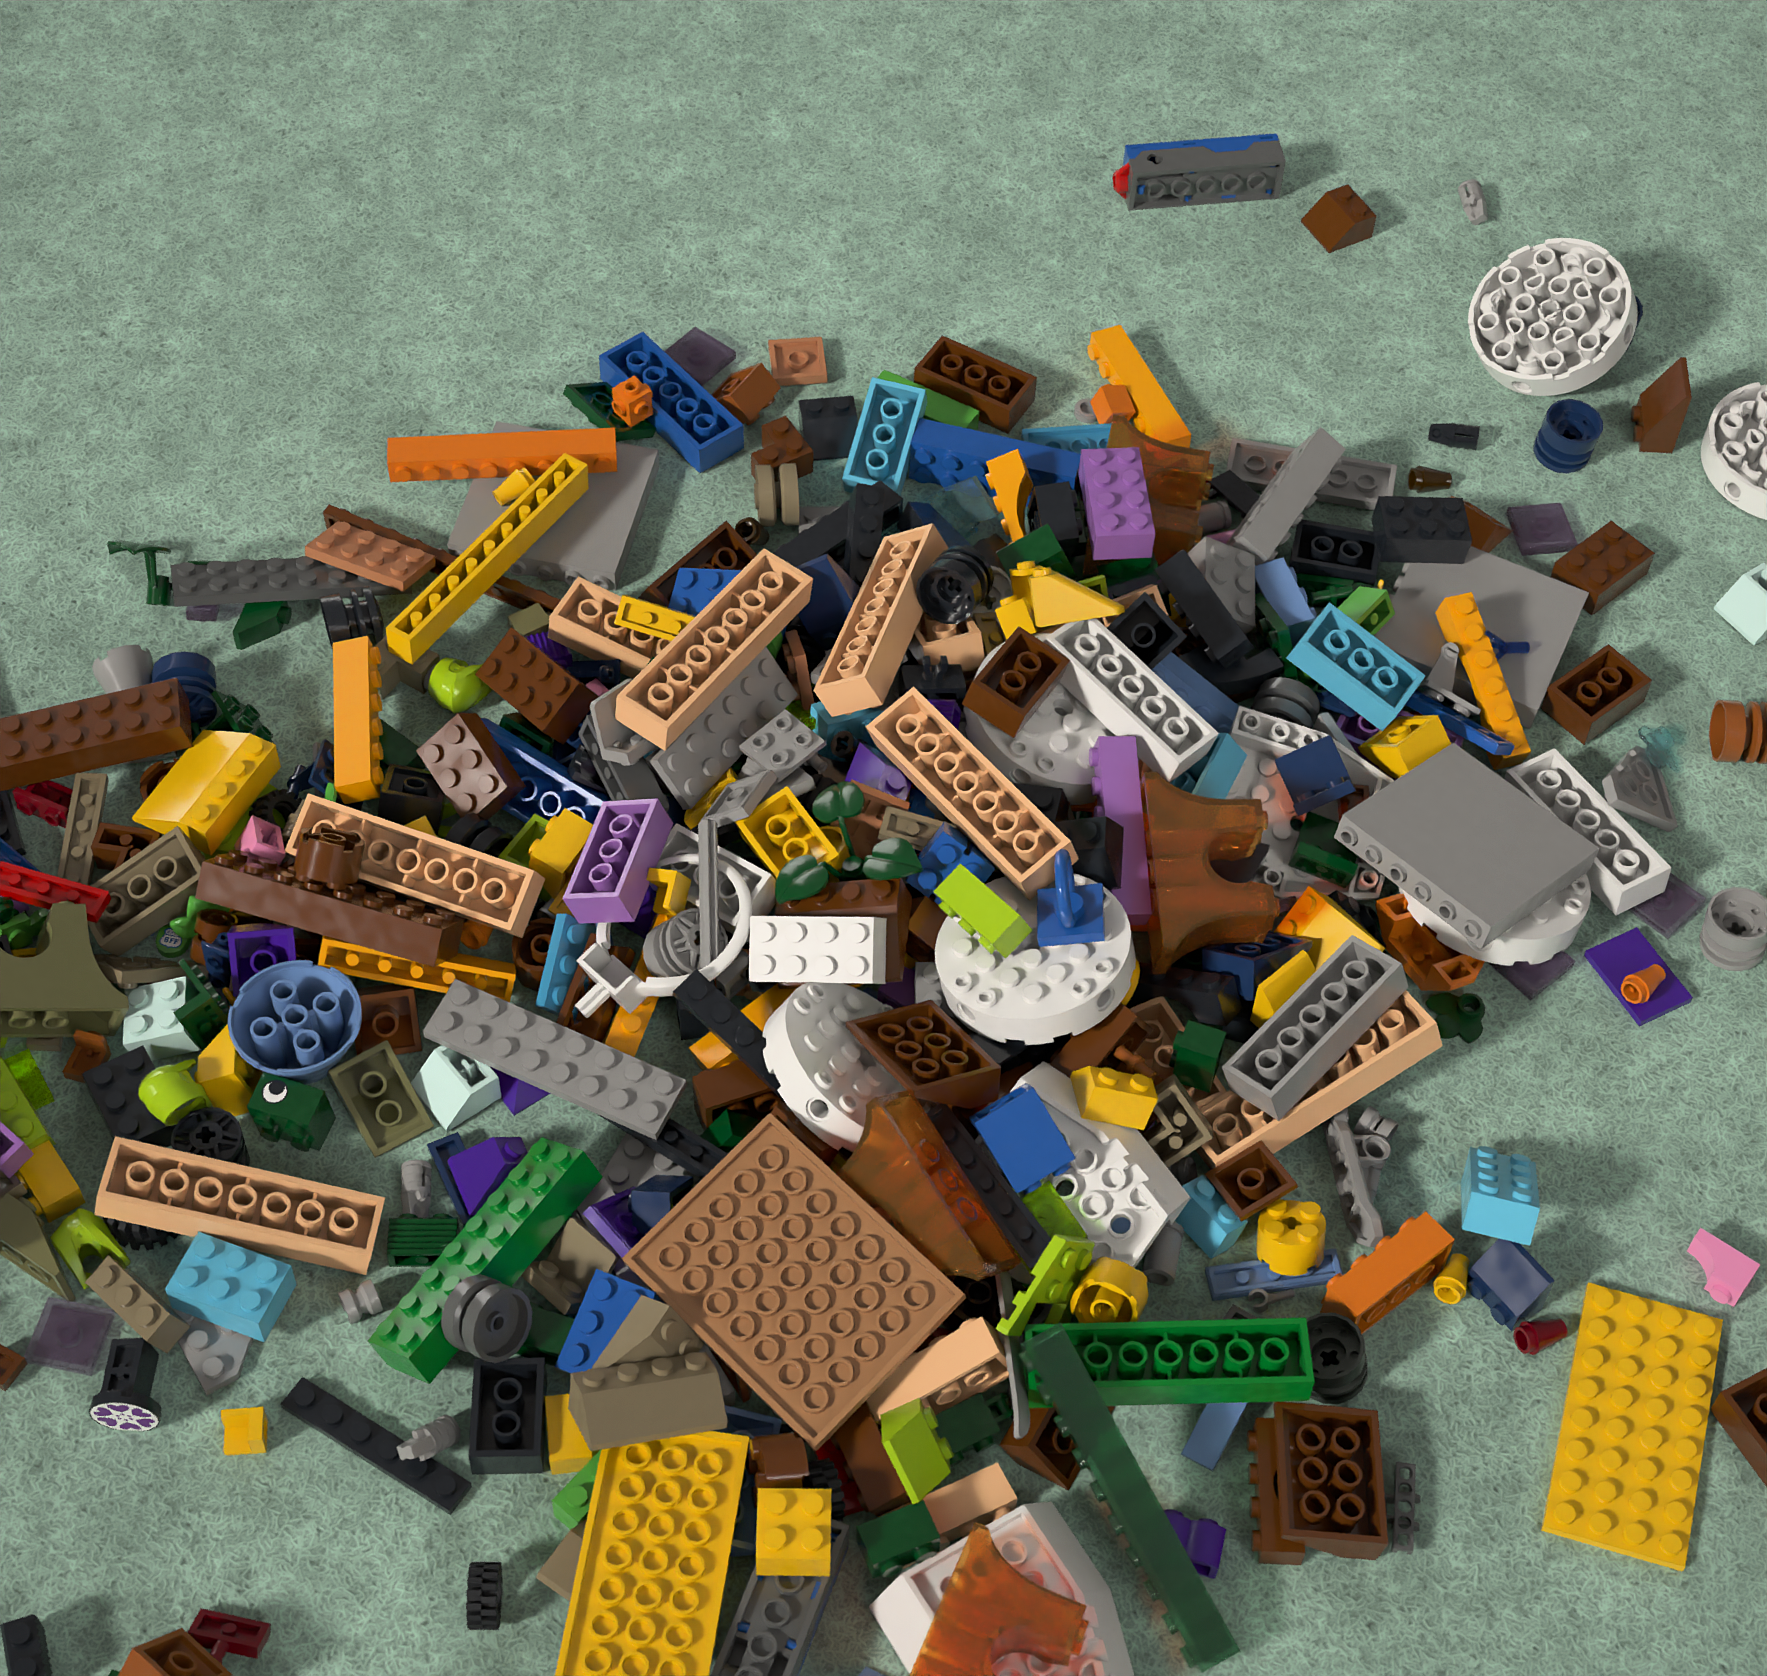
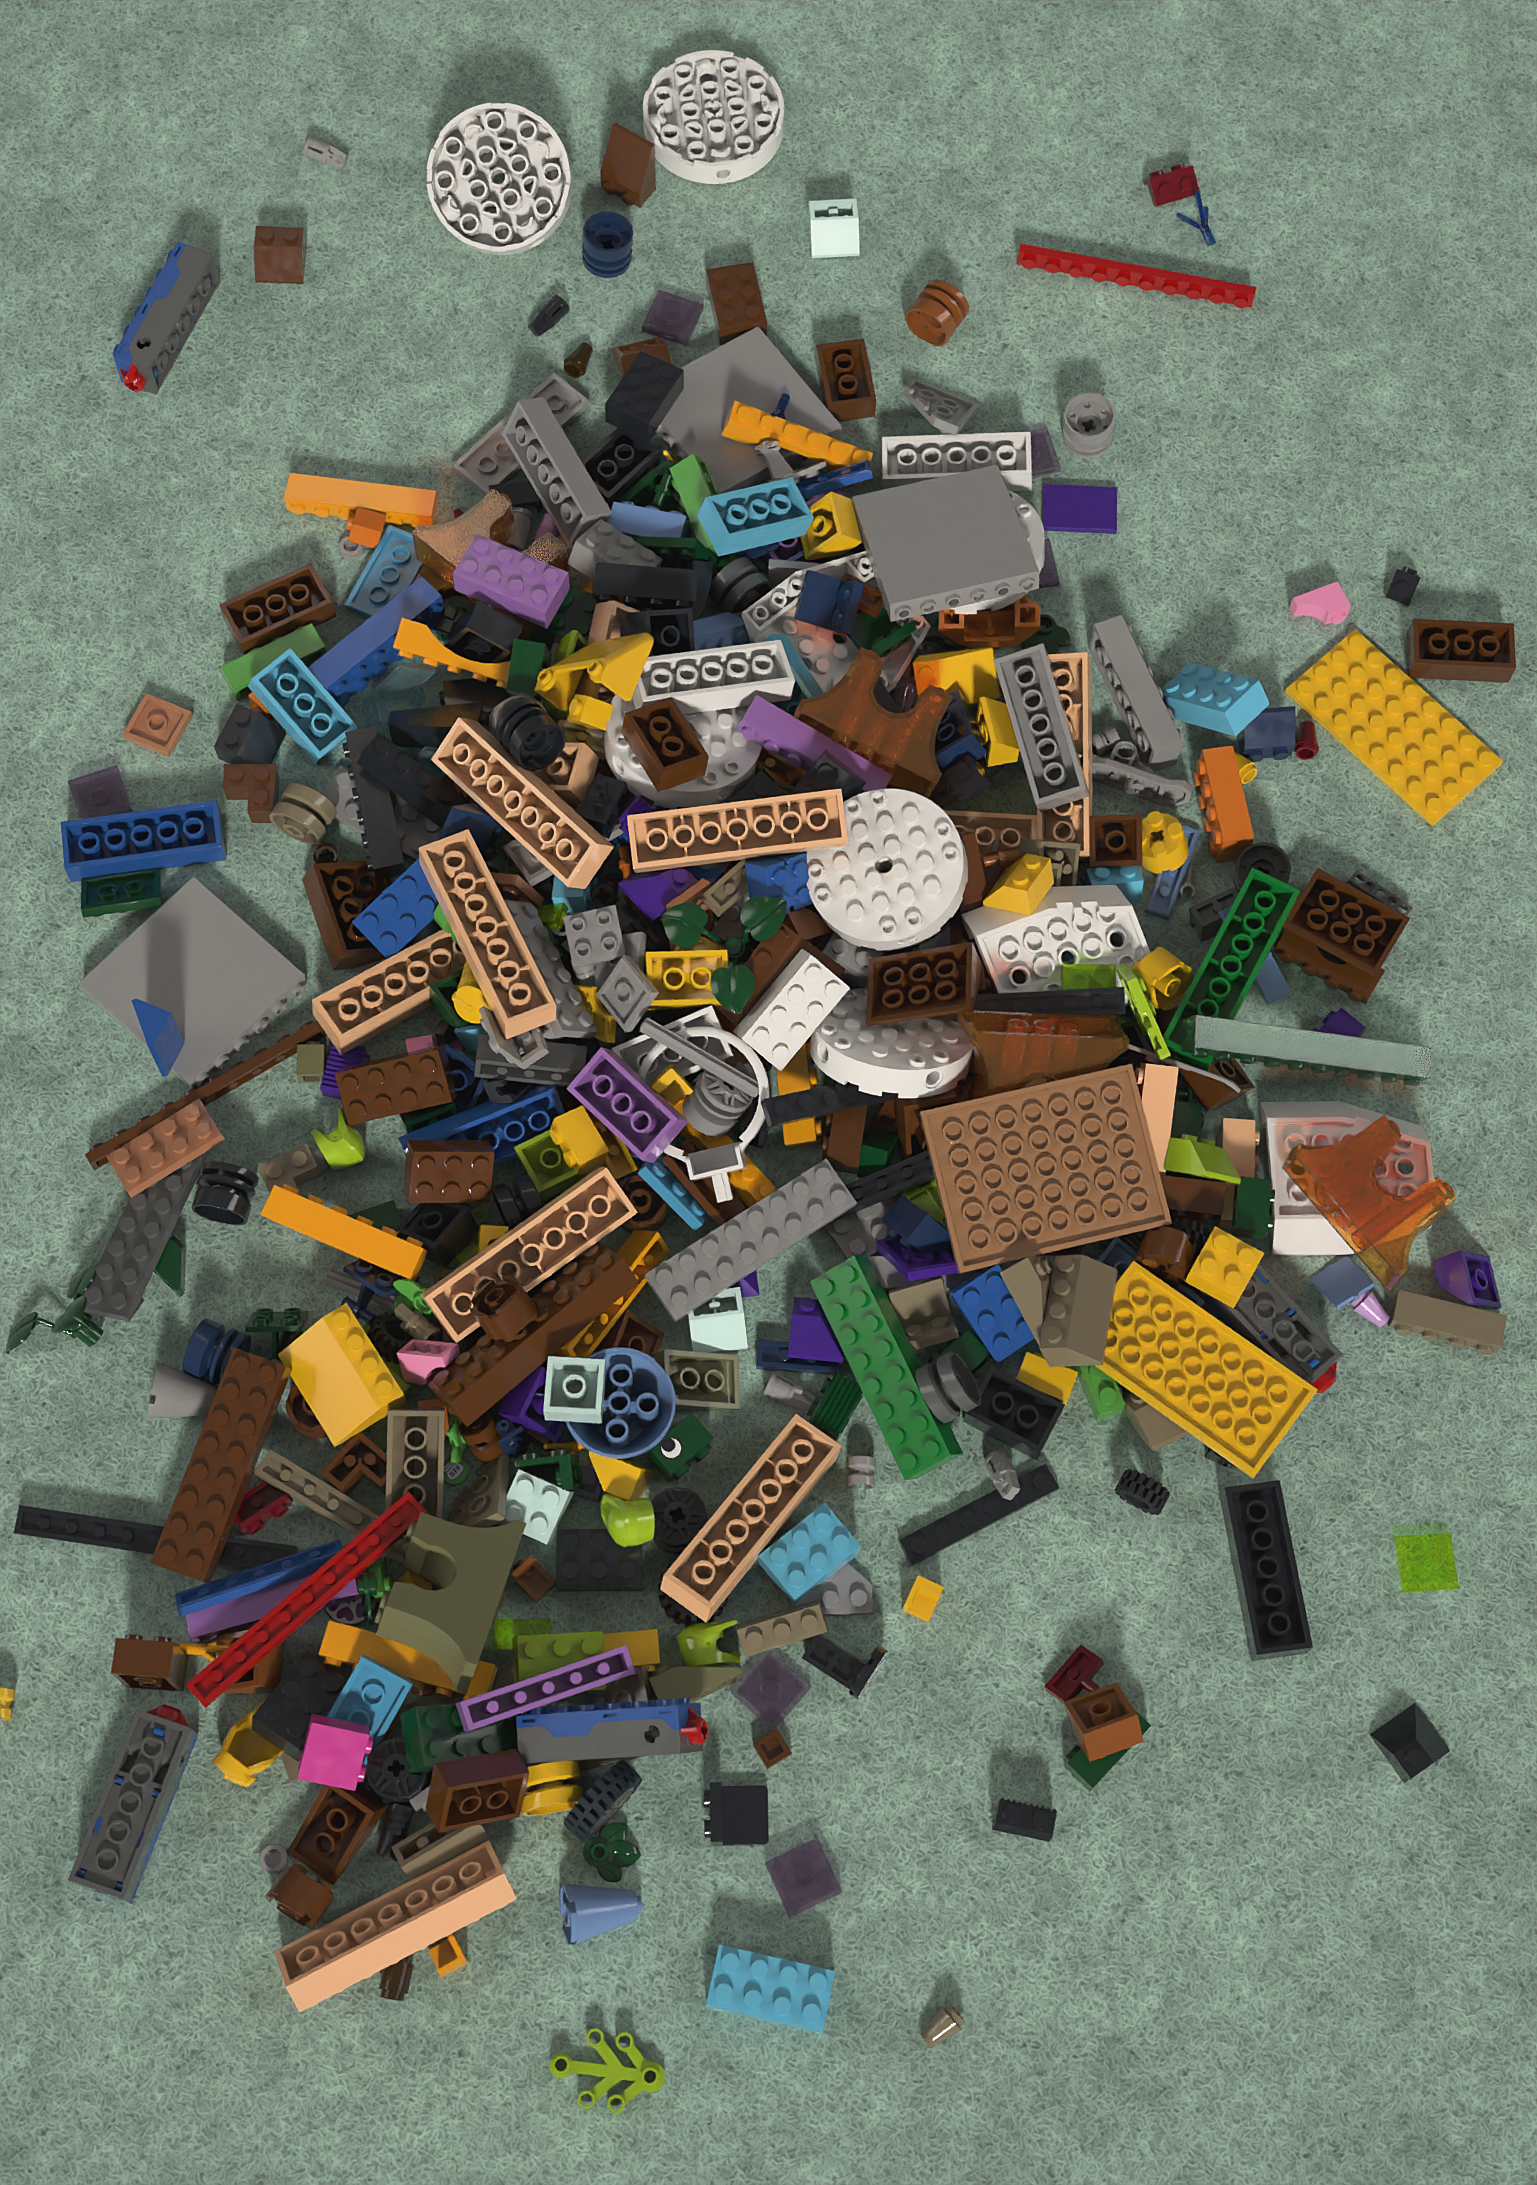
camera: 60 degrees left, 15 degrees up
(277, 961) = (574, 1389): none -> light aqua brick
(460, 483) = (160, 1034): none -> blue slope
(487, 559) = (243, 1057): yellow brick -> none
(497, 453) = (137, 979): orange brick -> none
(513, 486) = (169, 998): yellow cone -> none
(604, 670) = (395, 1037): dark blue hinge -> none
(632, 401) = (137, 868): orange brick -> none
(651, 618) = (400, 962): yellow plate -> none
(747, 392) = (168, 782): dark orange slope -> none
(981, 912) = (845, 882): lime brick -> none
(1023, 1139) = (1024, 961): blue slope -> none
(1069, 911) = (882, 824): blue tile -> none
(1197, 1055) = (1010, 815): dark green brick -> none
(1451, 1125) = (1135, 693): none -> light grey brick
(1641, 984) = (1095, 512): orange cone -> none
(1659, 747) = (905, 369): clear light blue plate -> none

